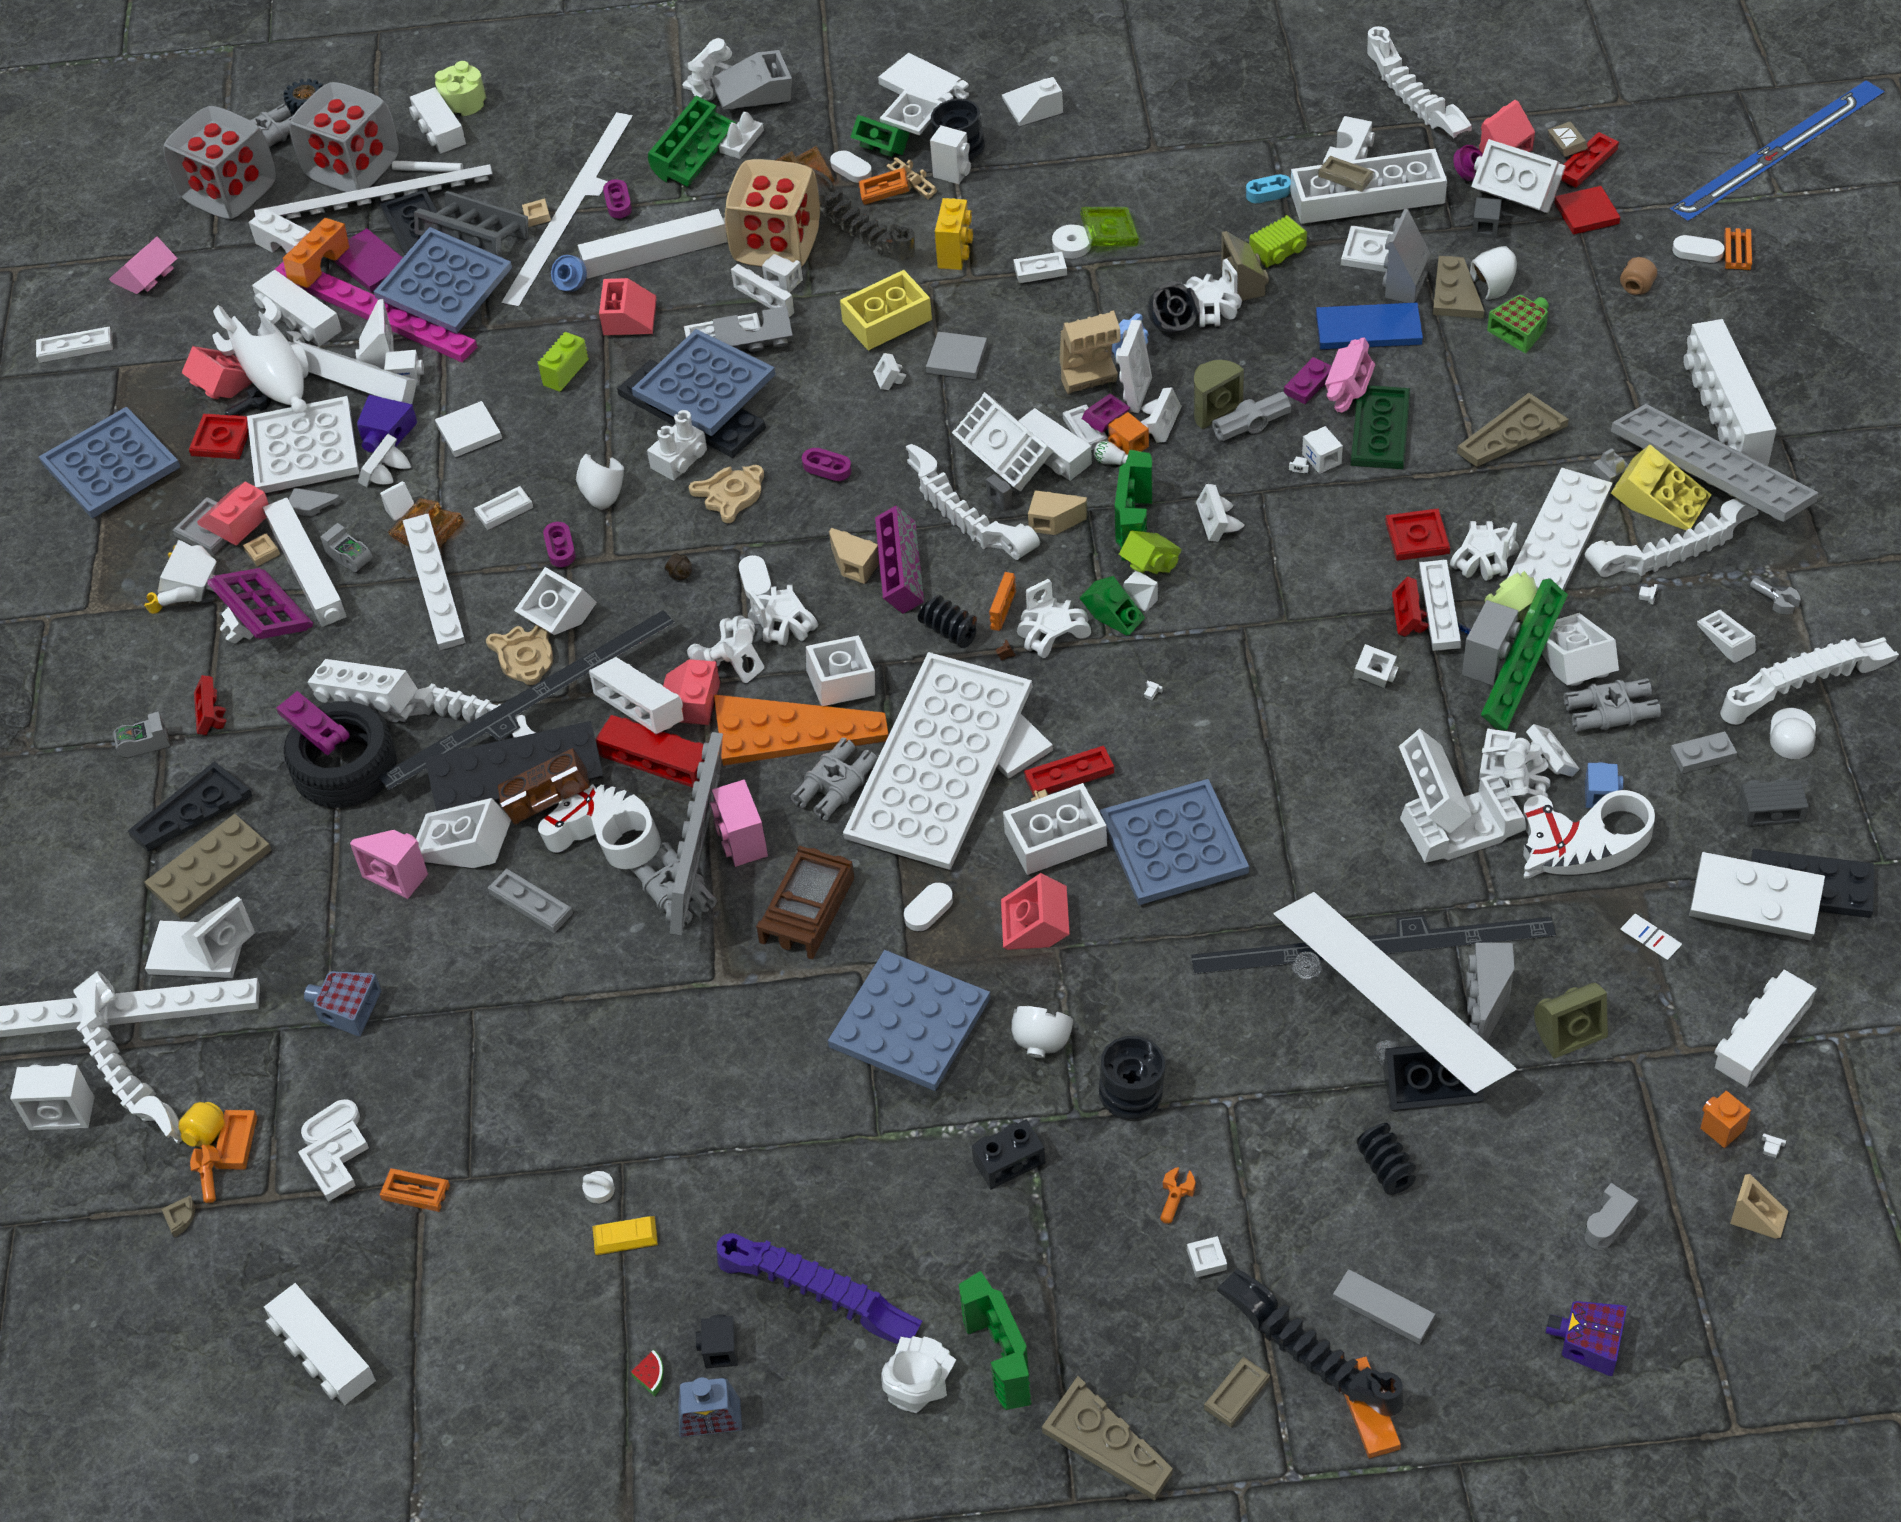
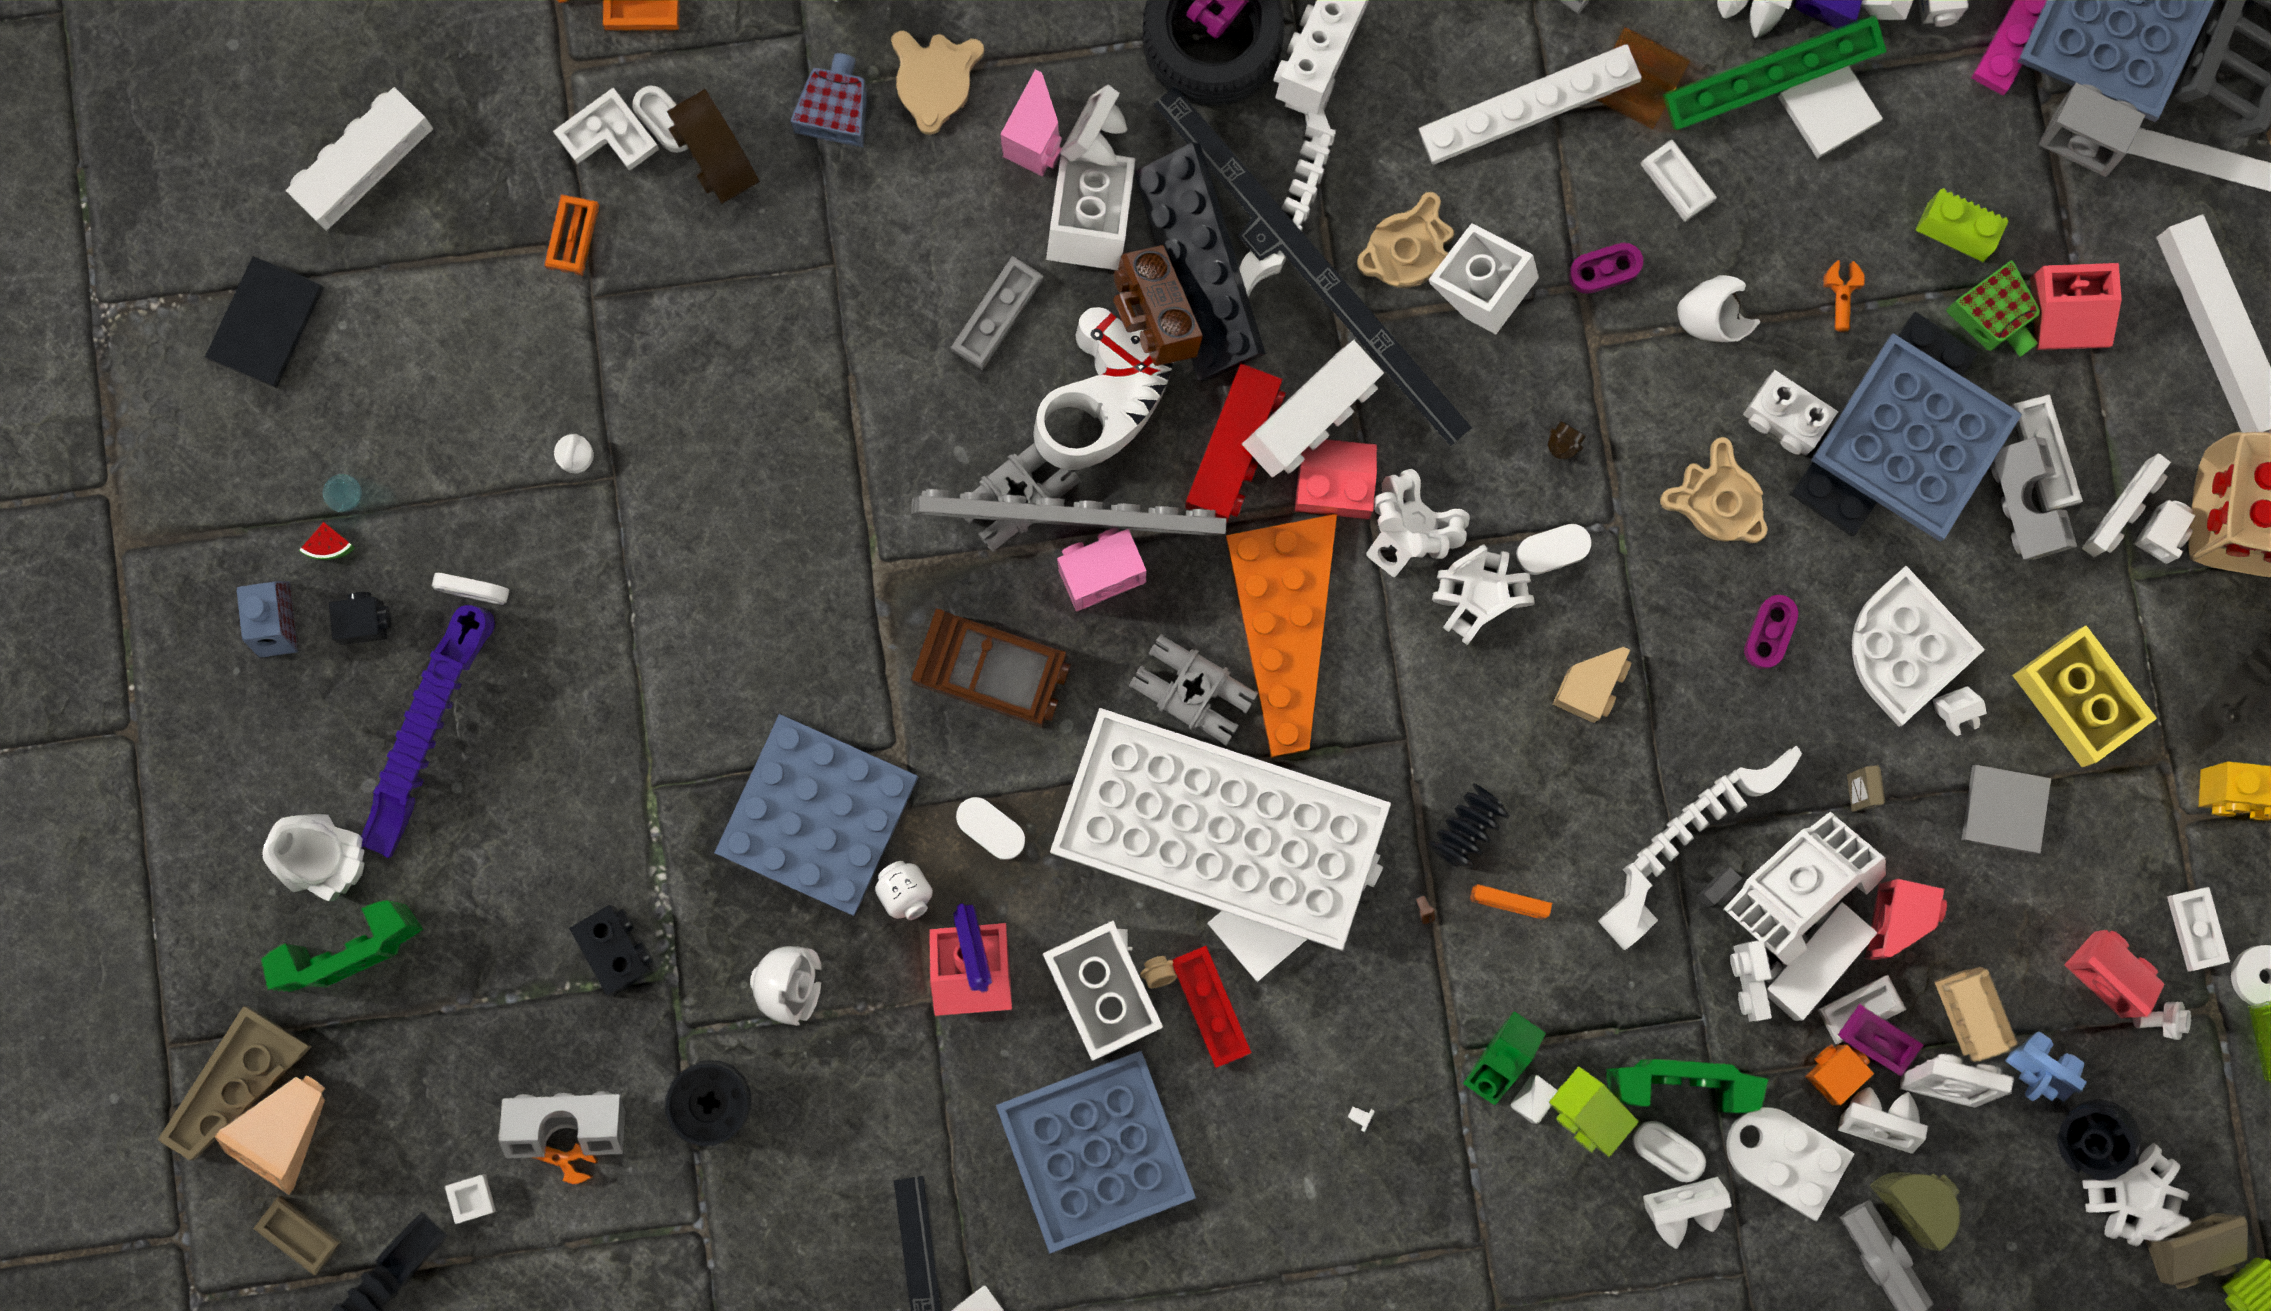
camera: 80 degrees right, 30 degrees up
(335, 940) = (935, 78): none -> tan tile
(362, 1075) = (713, 147): none -> dark brown brick
(382, 822) = (1085, 137): none -> white tile
(397, 500) = (1680, 31): white slope -> none
(439, 450) = (1774, 72): none -> green plate
(448, 1424) = (264, 322): none -> black tile
(511, 293) = (2092, 129): none -> light grey brick
(568, 273) = (2150, 209): medium blue plate -> none
(589, 425) = (1843, 292): none -> orange bar
(607, 1360) = (342, 493): none -> clear light blue plate
(623, 347) = (1998, 311): none -> bright green torso
(625, 1235) = (511, 493): yellow tile -> none
(701, 1257) = (470, 588): none -> white tile
(840, 670) = (1370, 683): white brick -> none
(843, 397) = (1908, 646): none -> white plate
(899, 559) = (1578, 750): magenta brick -> none
(938, 411) = (1866, 788): none -> dark tan tile
(972, 956) = (903, 890): none -> white head
(1018, 901) = (972, 947): none -> dark purple axle
(1024, 390) = (1903, 915): none -> coral slope
(1049, 618) = (1471, 974): white piece -> none
(1055, 512) = (1682, 968): tan slope -> none
(1057, 476) = (1752, 966): none -> white plate
(1069, 301) = (2116, 974): none -> coral slope
(1098, 280) = (2174, 1020): none -> white plate
(1108, 453) = (1804, 1046): white piece -> none
(1146, 1208) = (531, 1120): none -> arch
(1155, 1396) = (276, 1132): none -> light nougat slope
(1180, 524) = (1668, 1151): none -> white tile
(1187, 465) = (1789, 1160): none -> white plate

